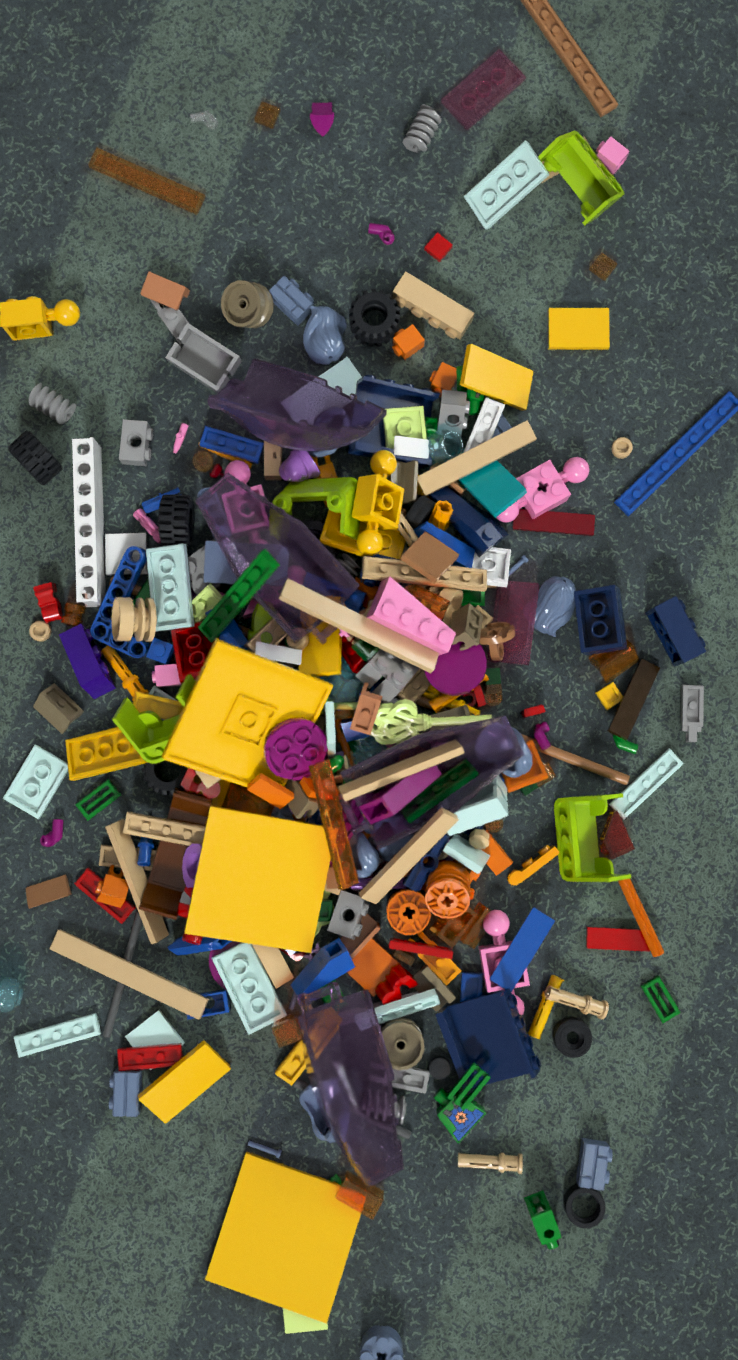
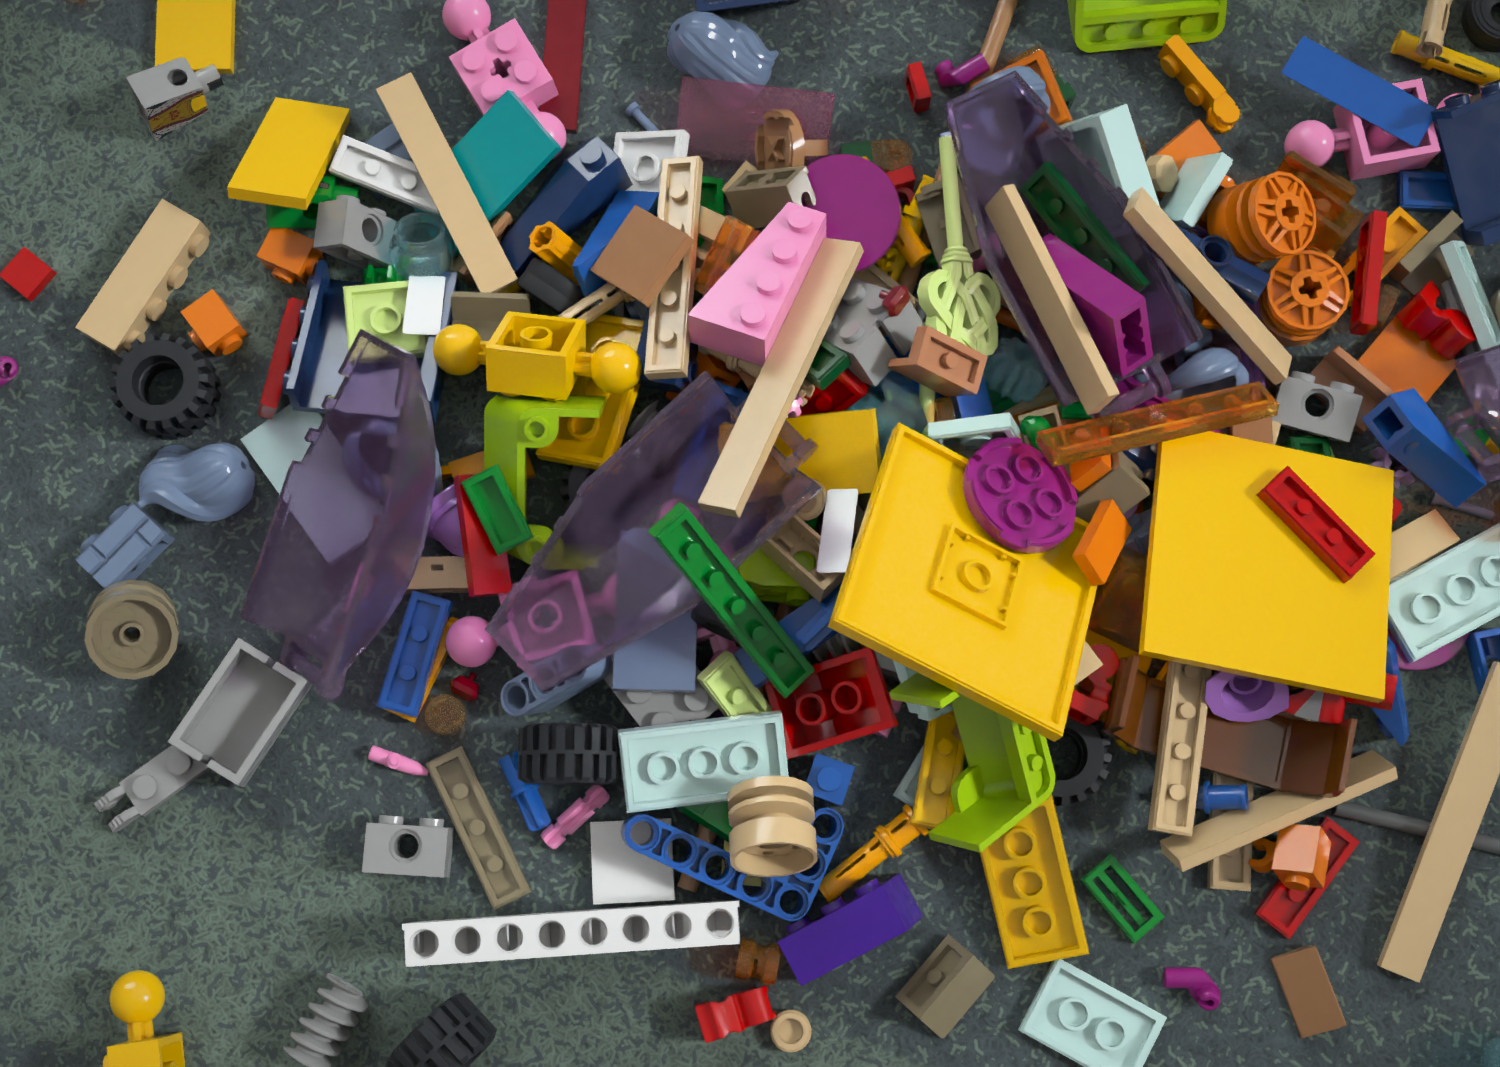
camera: 90 degrees left, 5 degrees down
(145, 478) = (478, 828): none -> dark tan tile
(164, 291) = (97, 801): nougat panel -> none
(166, 676) = (874, 766): bright pink brick -> none
(279, 905) = (1316, 524): none -> red tile
(286, 476) = (485, 570): none -> red tile
(297, 482) = (497, 509): none -> green tile
(396, 684) = (894, 300): none -> dark red rock
(404, 379) = (280, 359): none -> red tile
(531, 310) = (172, 94): none -> light grey torso

